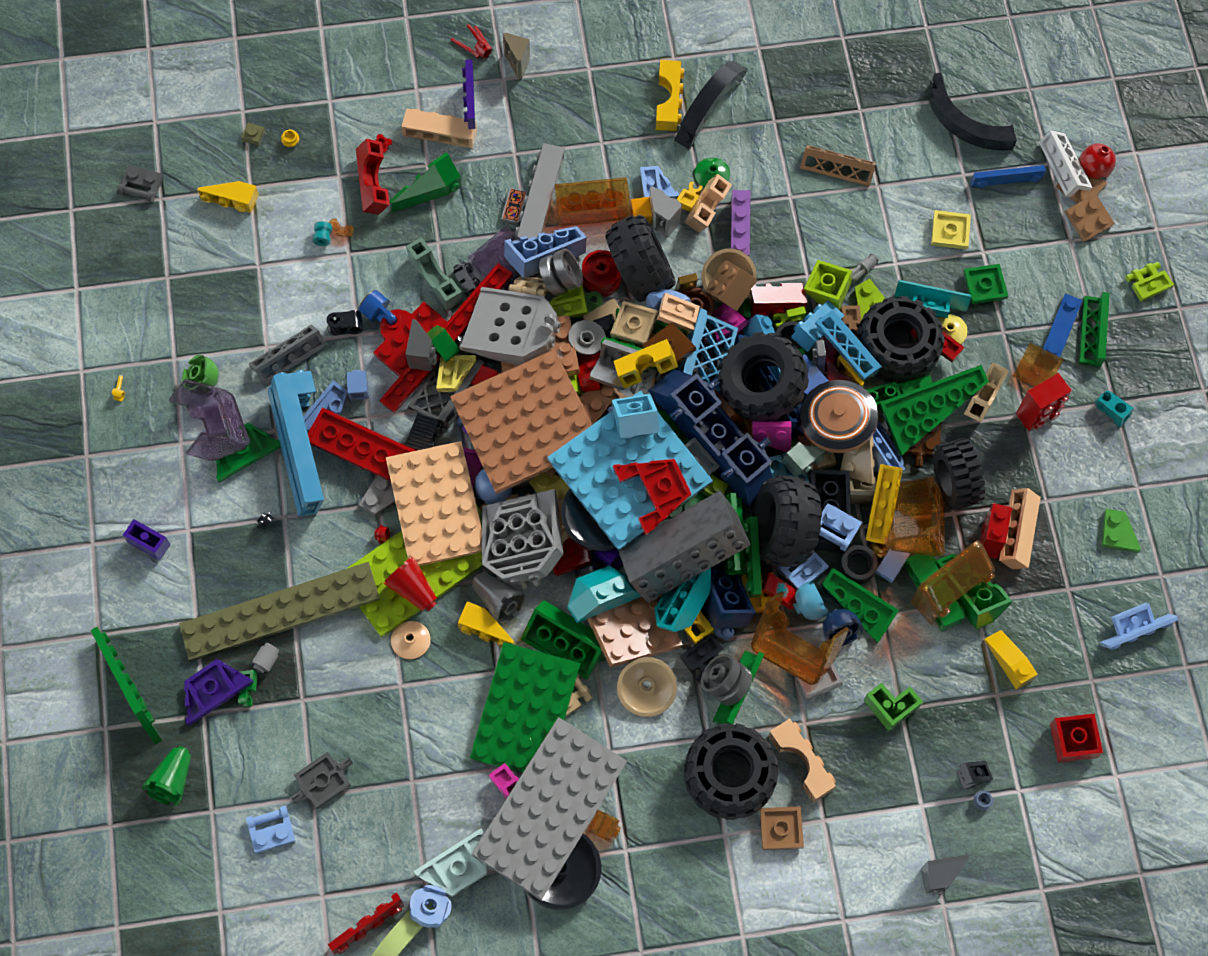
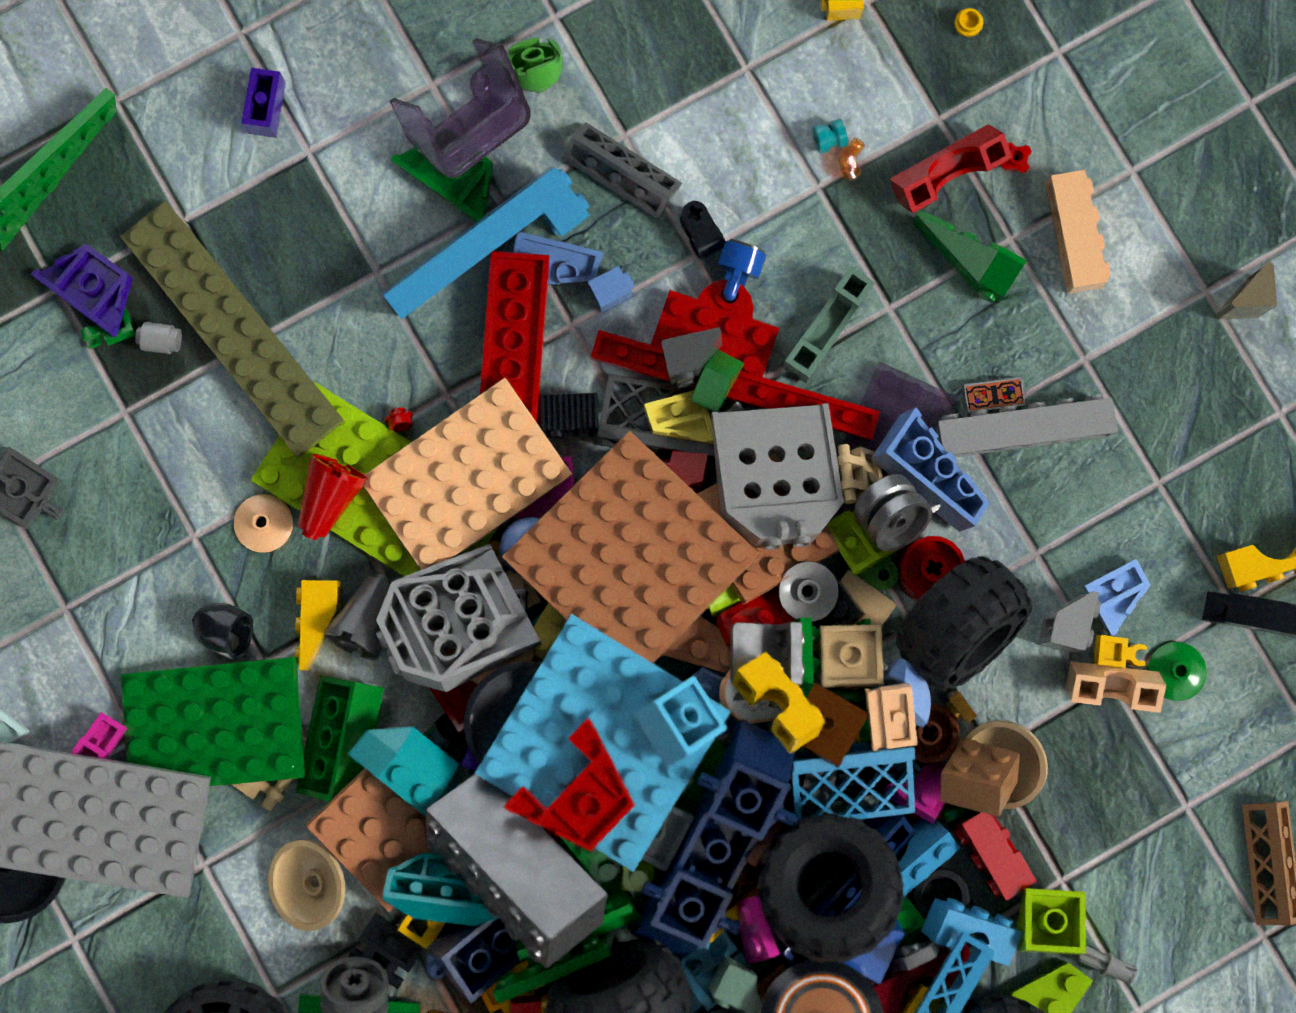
camera: 65 degrees right, 15 degrees up
(265, 520) = (356, 249): black plate -> none
(378, 497) = (452, 388): light grey wing -> none
(465, 272) = (854, 367): black hinge -> none
(467, 682) = (216, 622): none -> black piece
(468, 88) = (1157, 246): dark purple wing -> none
(482, 48) = (1244, 239): red plant -> none
(592, 201) = (1045, 510): clear orange brick -> none
(604, 826) = (89, 901): clear orange brick -> none
(642, 207) = (1060, 589): light orange brick -> none
(740, 221) = (1101, 748): medium lavender arch -> none
(795, 315) = (978, 886): lime plate -> none
(852, 317) = (1013, 977): medium nougat plate -> none

